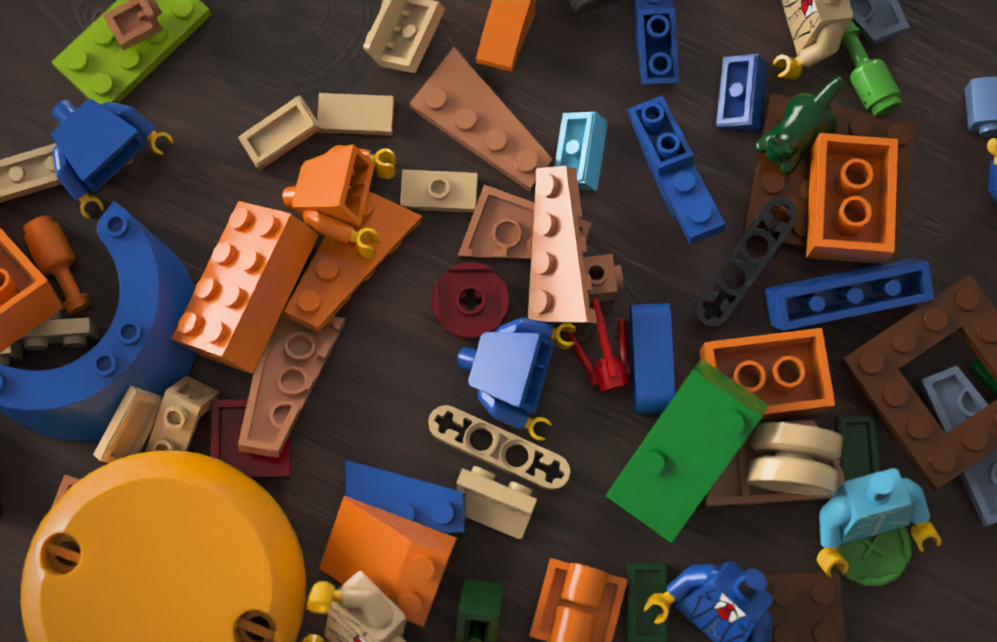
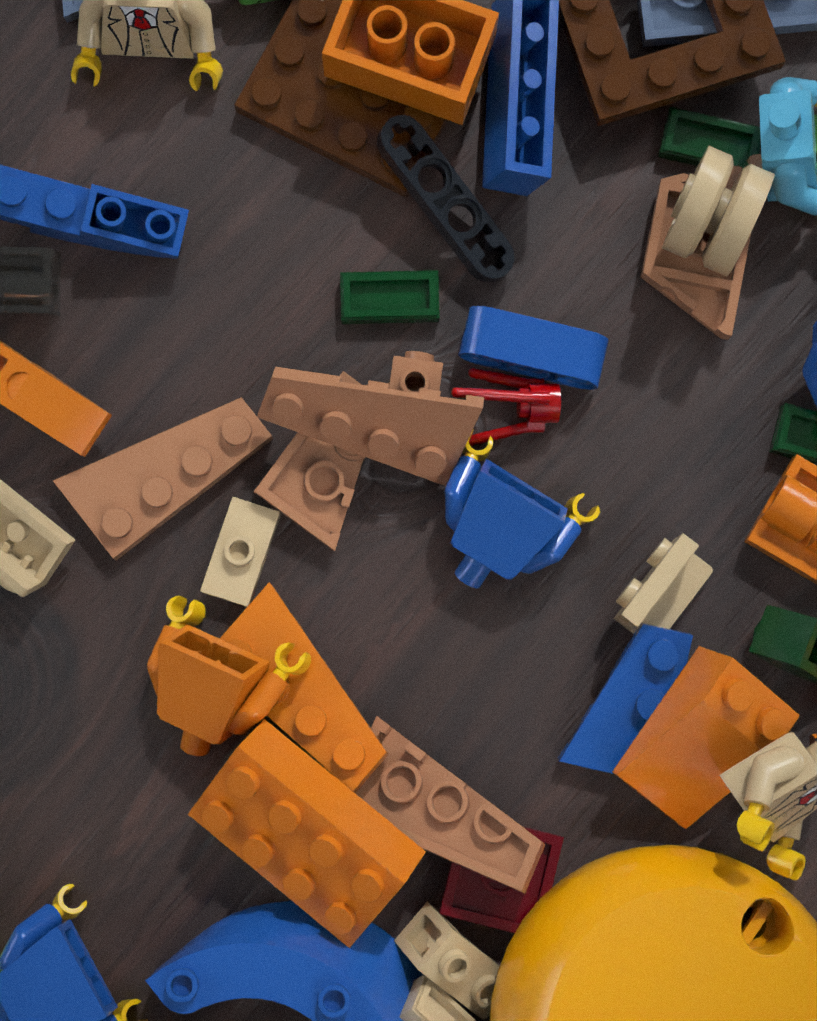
camera: 80 degrees left, 5 degrees up
(279, 132) = (102, 738): tan tile -> none
(355, 114) = (105, 632): tan tile -> none
(454, 286) = (374, 566): dark red plate -> none
(501, 443) = (588, 562): tan beam -> none
(582, 146) = (234, 358): medium azure slope -> none
(660, 245) = (389, 297): none -> dark green tile
(674, 170) = (302, 251): blue slope -> none
(687, 450) = (670, 333): green brick -> none
(742, 93) = (221, 141): blue slope -> none
(779, 368) = (599, 217): orange brick -> none
(802, 122) = (292, 71): dark green animal -> none

